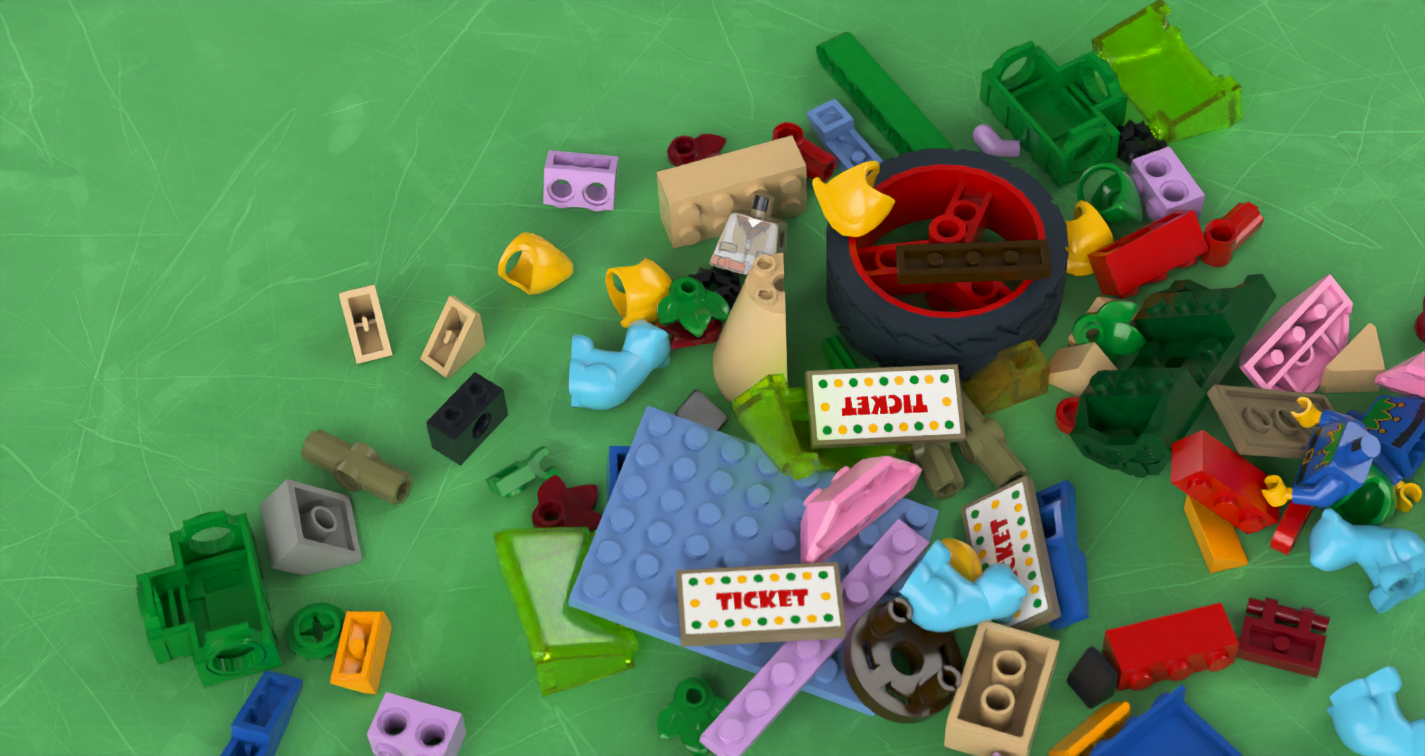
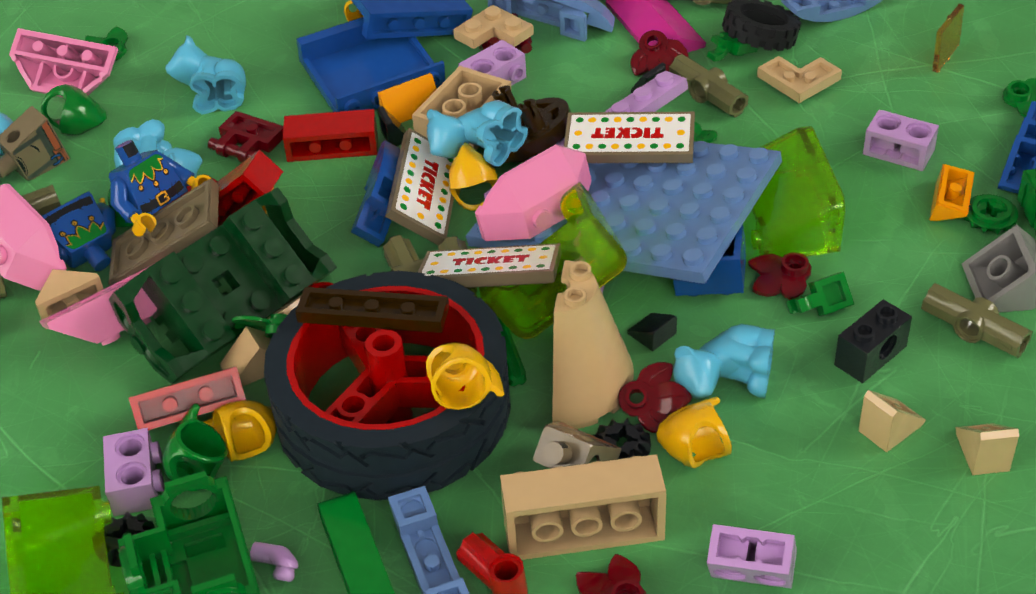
camera: 170 degrees left, 10 degrees down
(539, 266) = (799, 482): yellow piece -> none
(691, 309) = (646, 398): green plate -> none
(1229, 233) = (108, 414): red piece -> none

